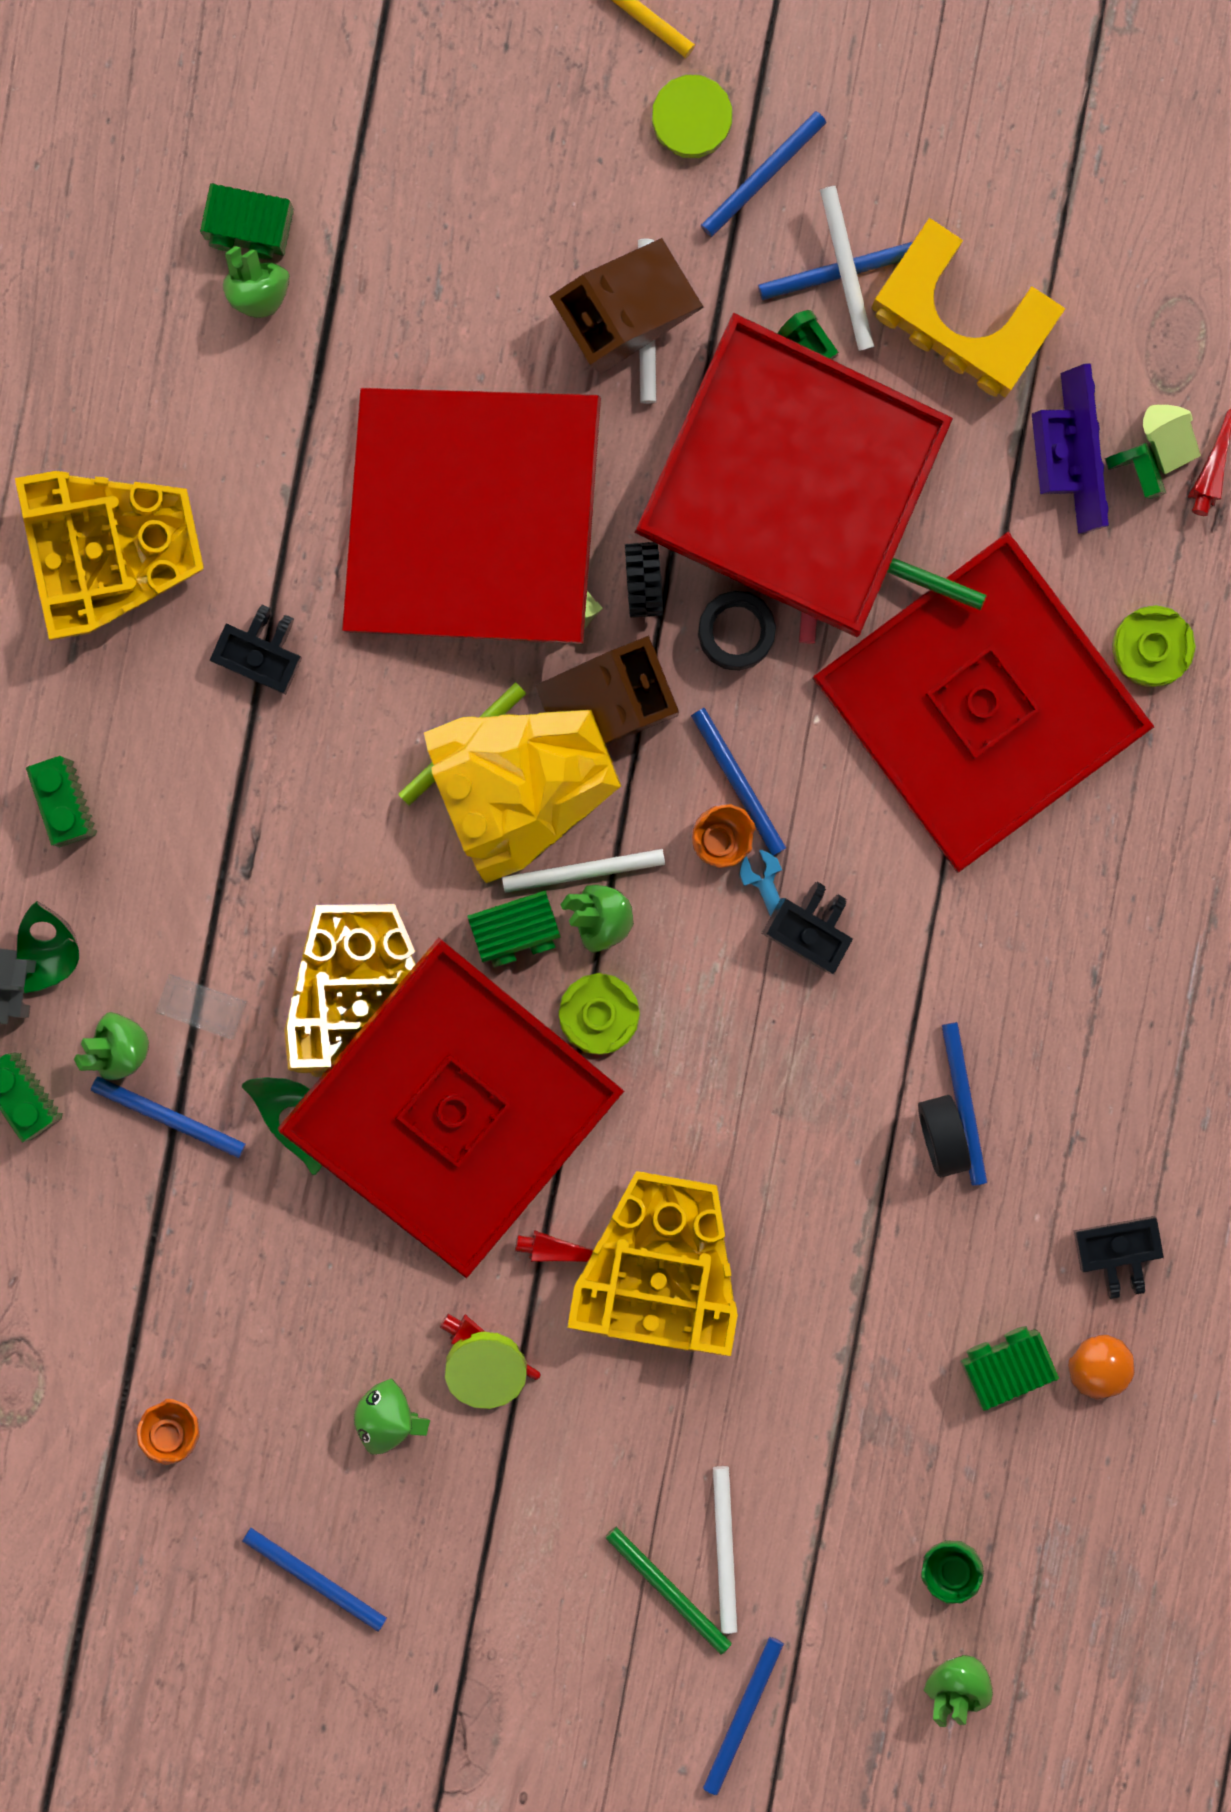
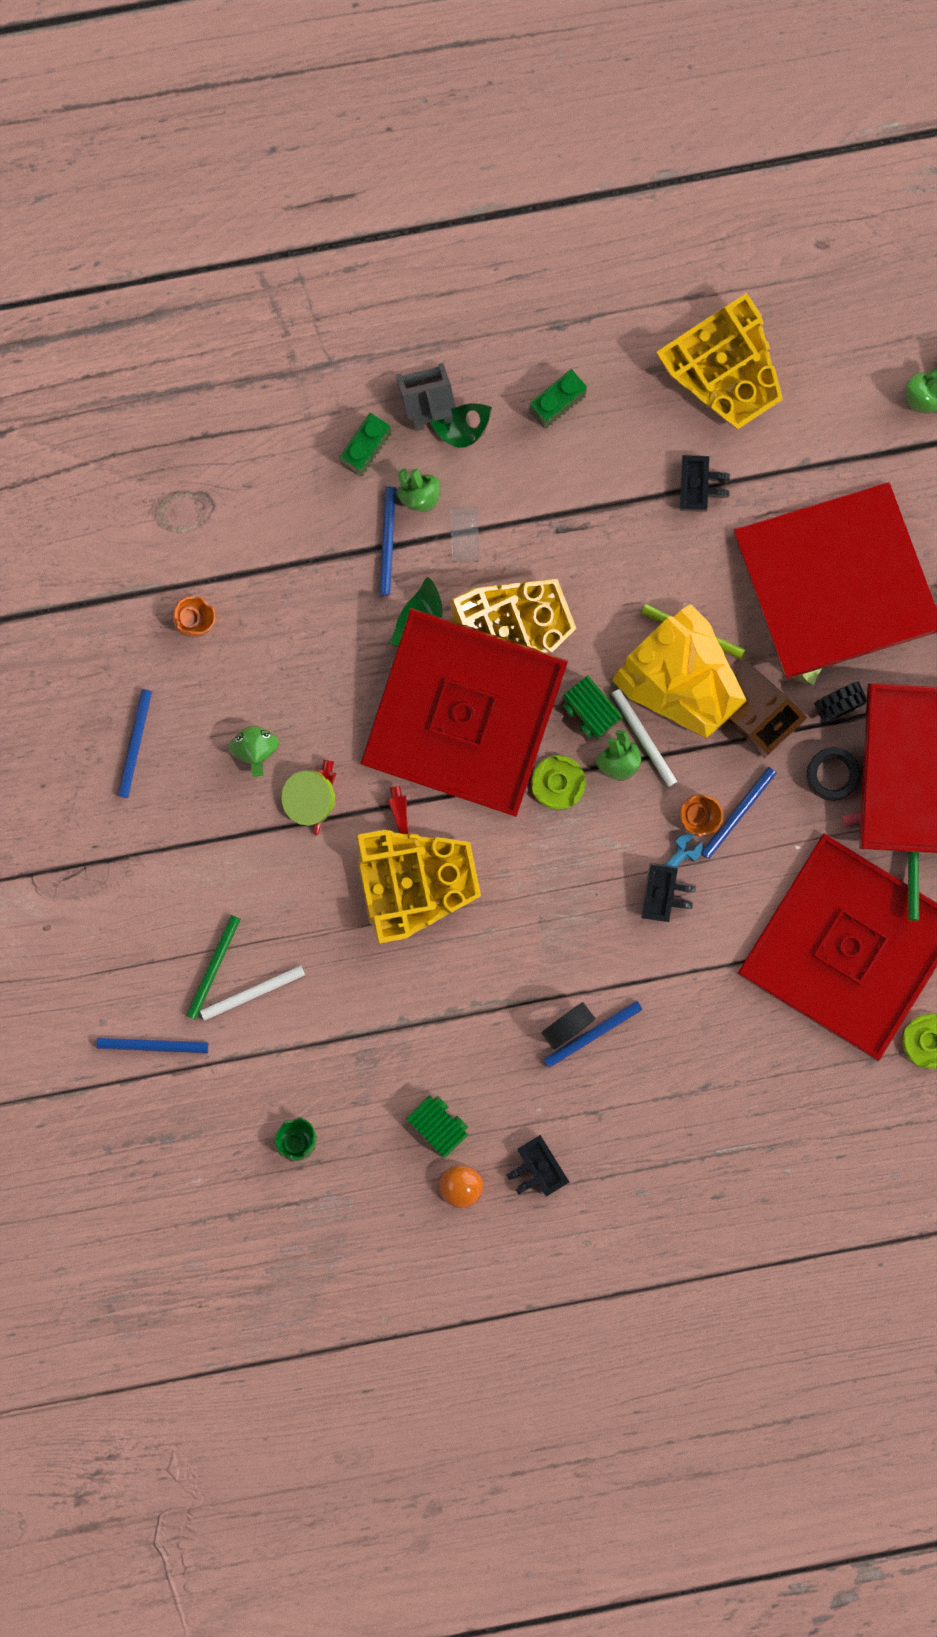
camera: 65 degrees right, 5 degrees down
(960, 1685) = (224, 1172): bright green piece -> none

